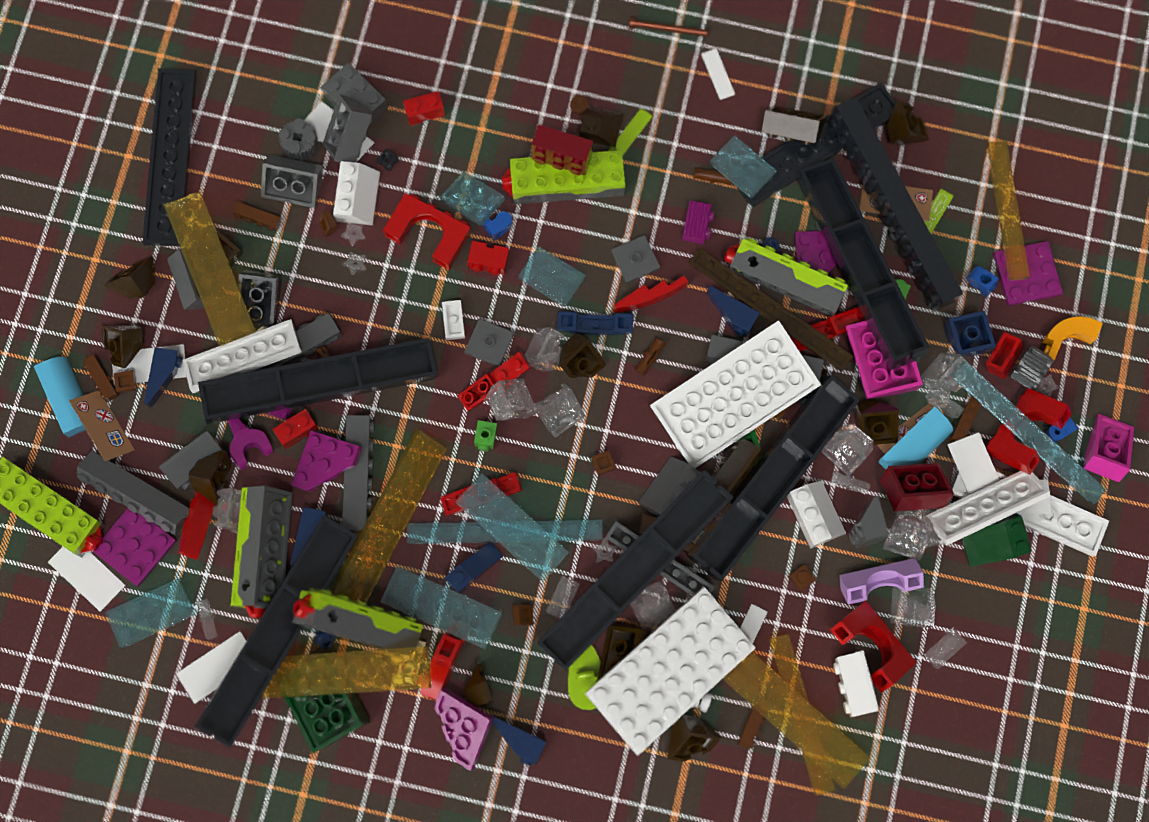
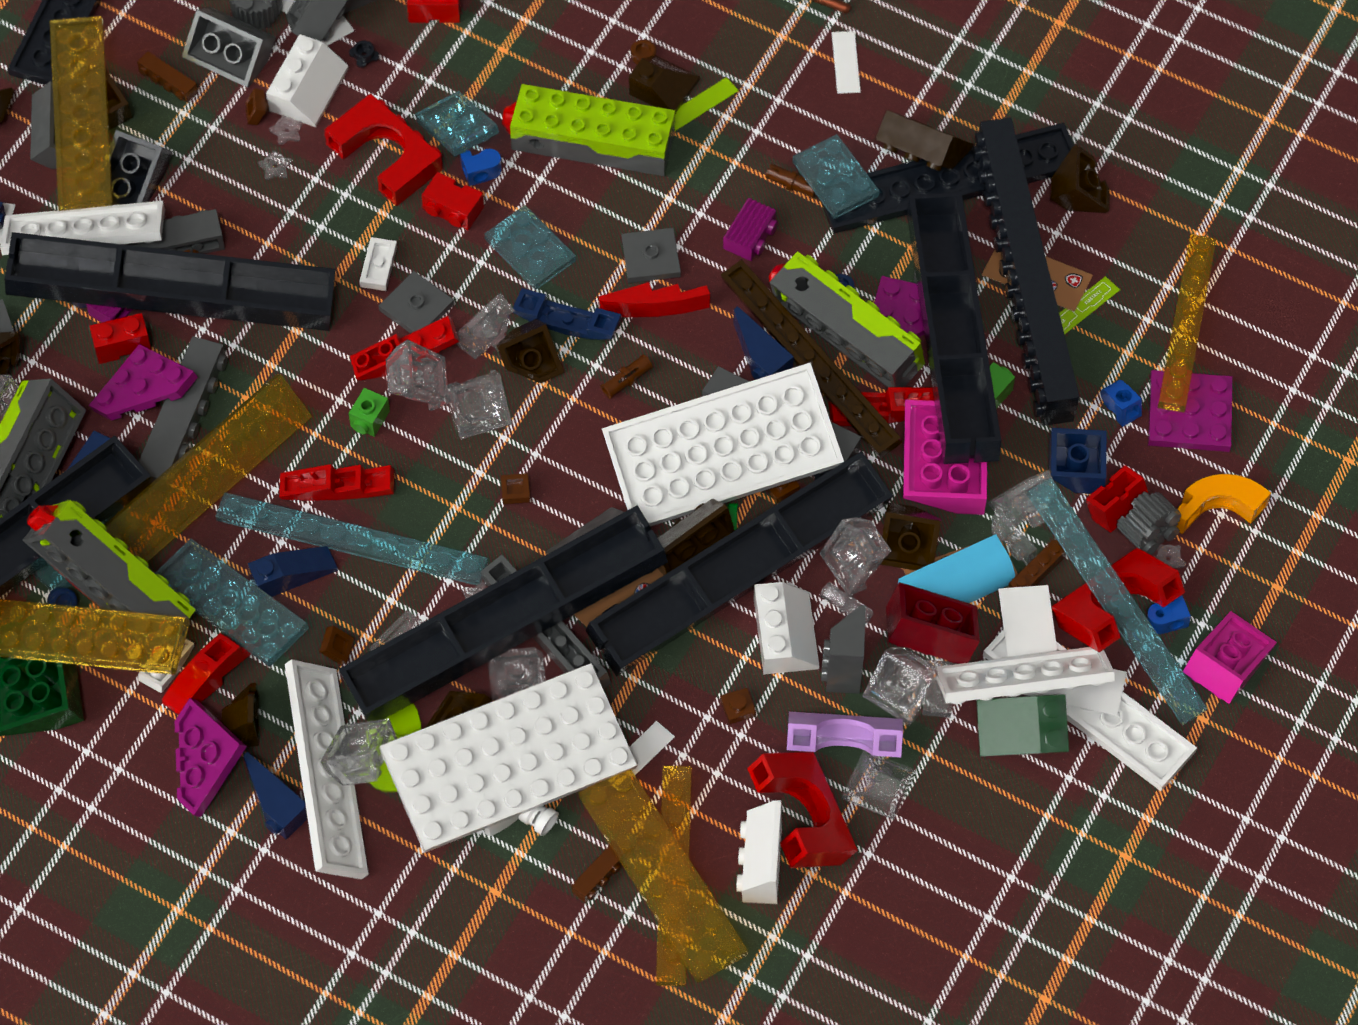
camera: 20 degrees right, 15 degrees down
(246, 438) = (50, 333): magenta piece -> none
(512, 527) = (361, 528): clear light blue plate -> none
(548, 711) = (329, 805): none -> white plate
(561, 150) = (590, 82): dark red brick -> none
(566, 694) = (355, 751): none -> clear brick
(690, 737) = (508, 861): dark brown slope -> none
(945, 648) = (906, 847): clear plate -> none

